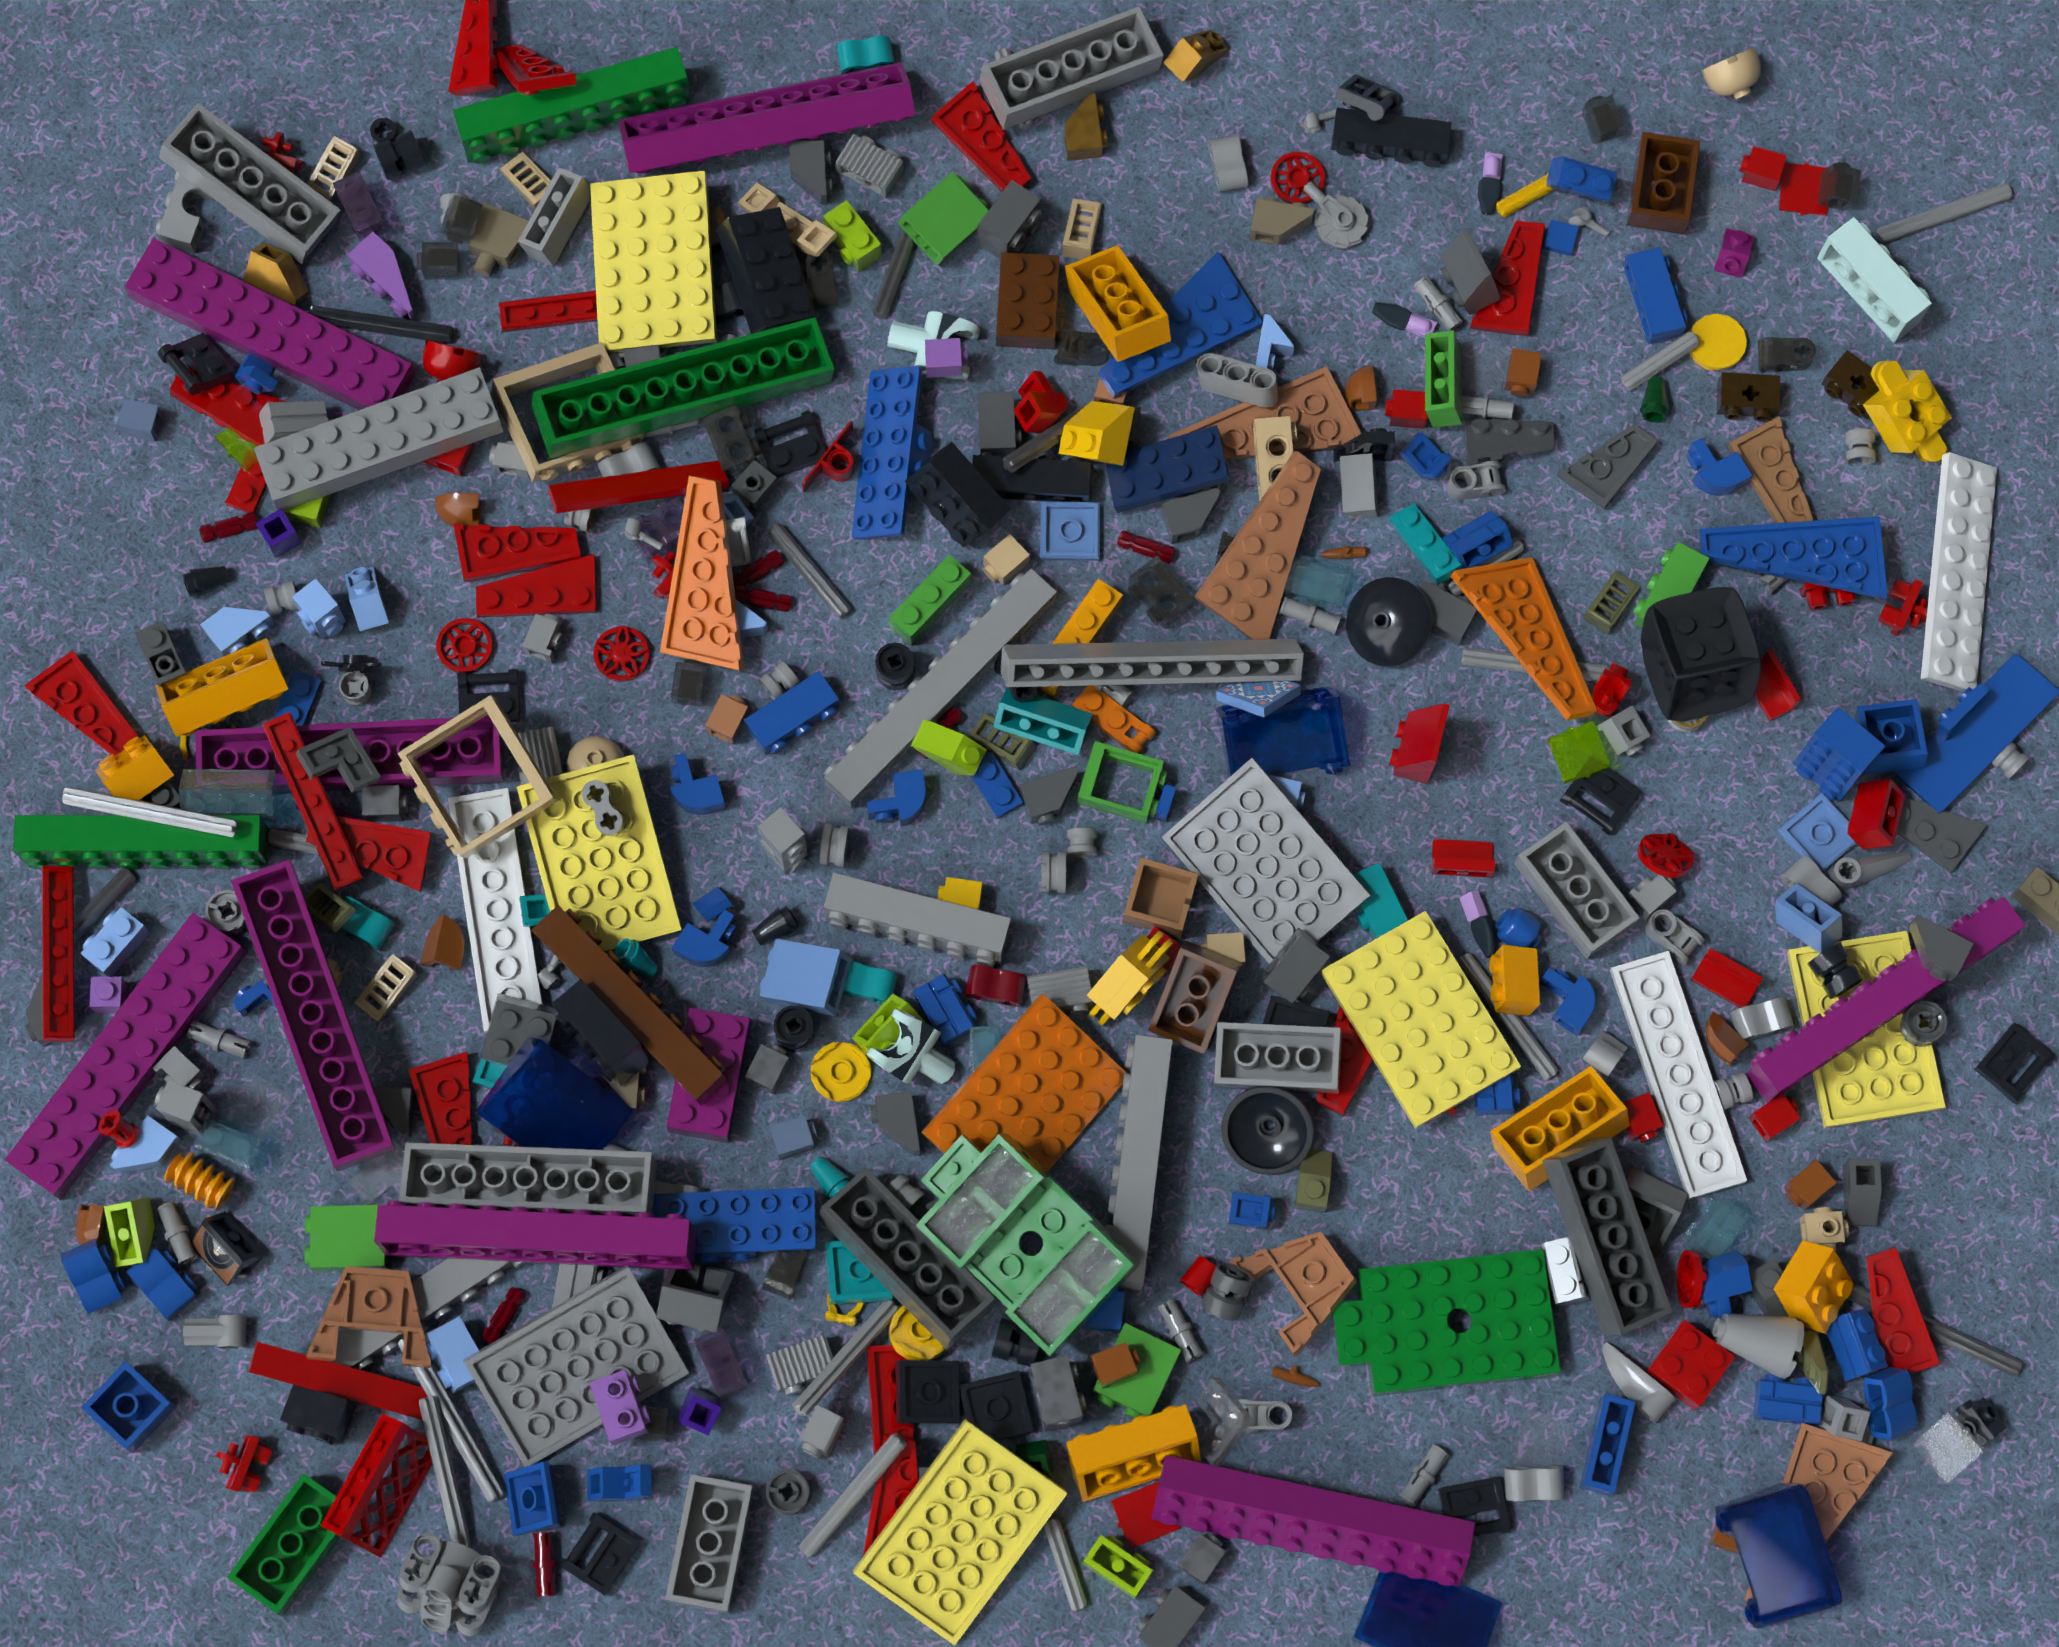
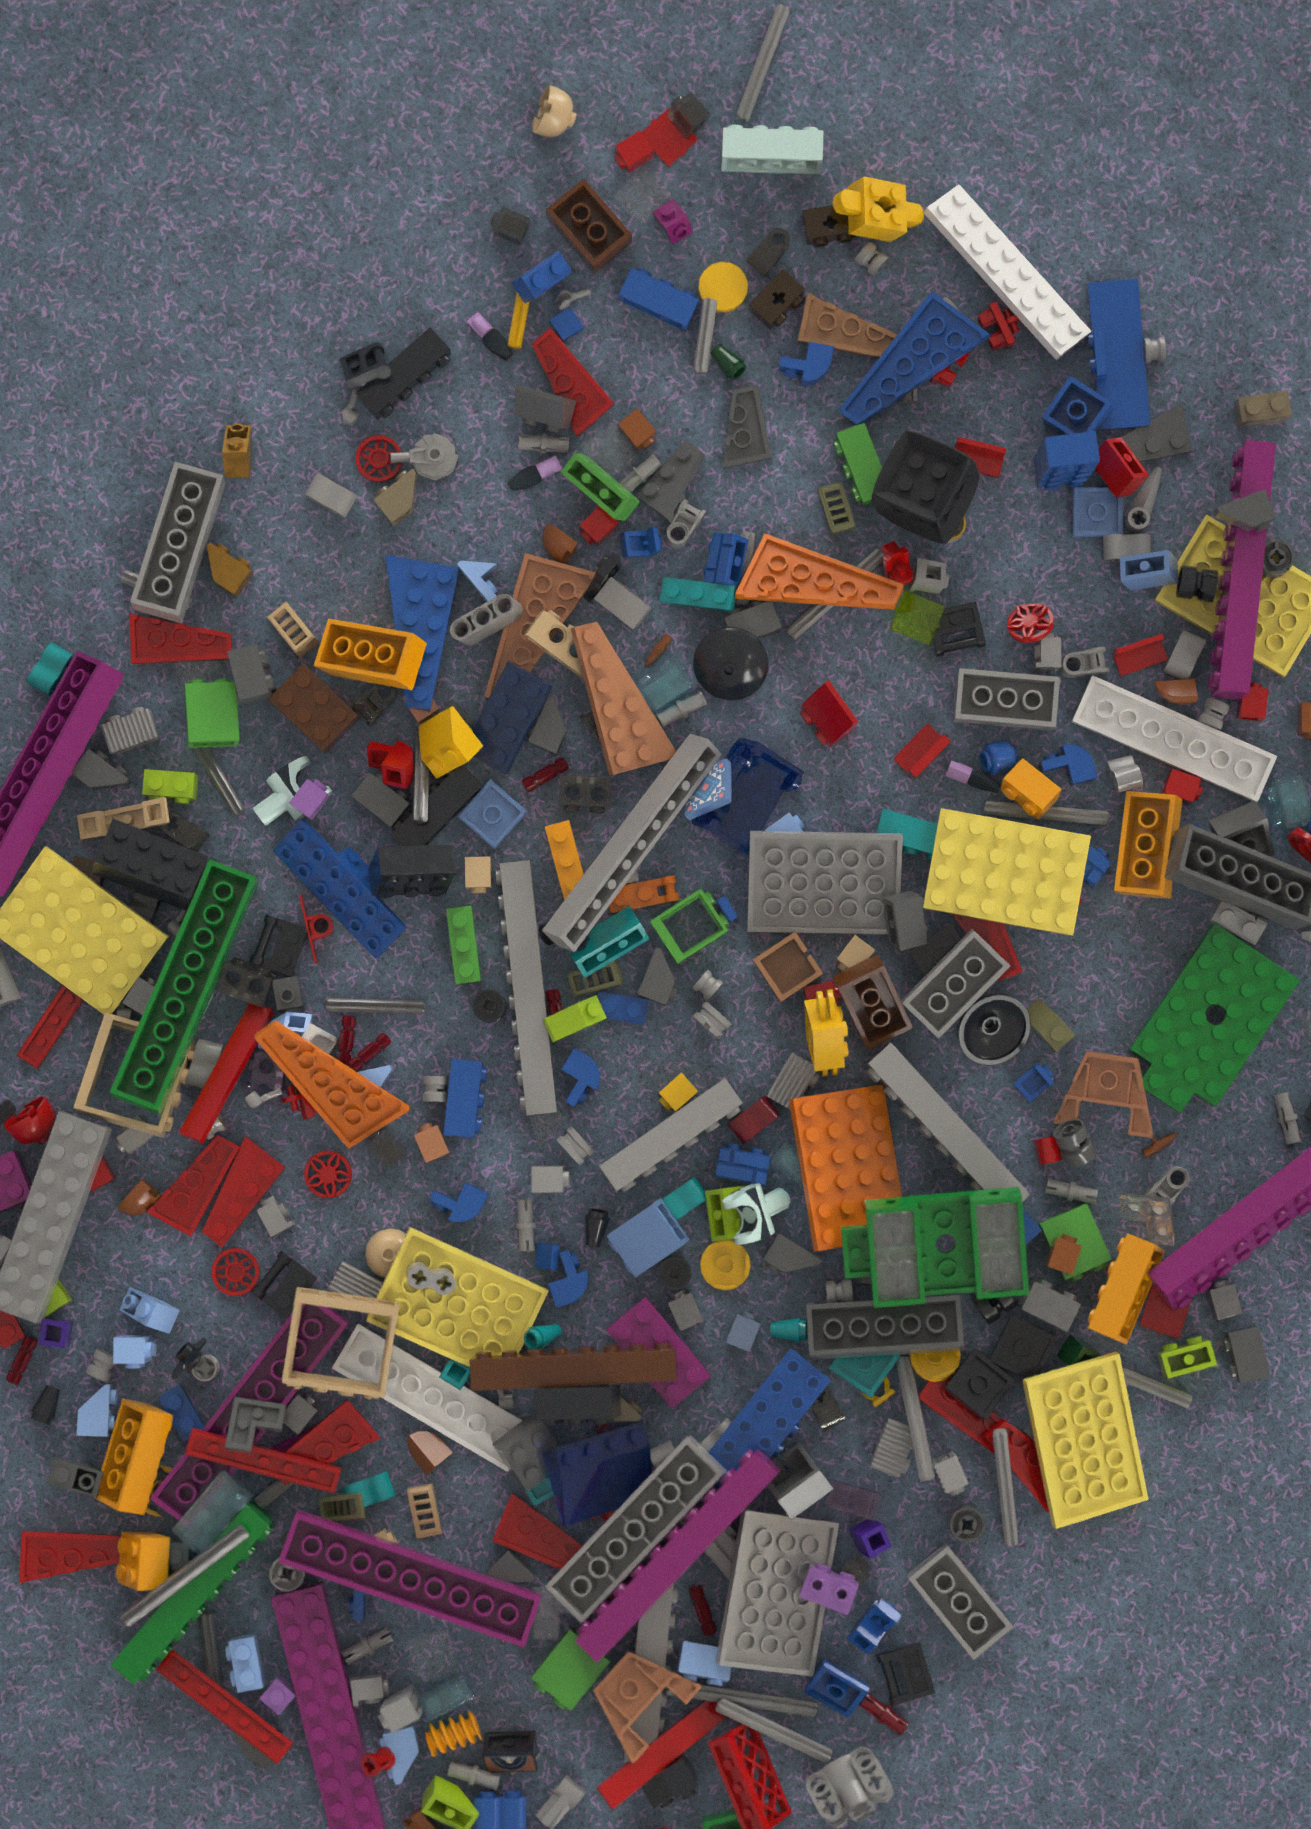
camera: 45 degrees left, 10 degrees up
(724, 863) = (525, 1224): none -> light grey pin

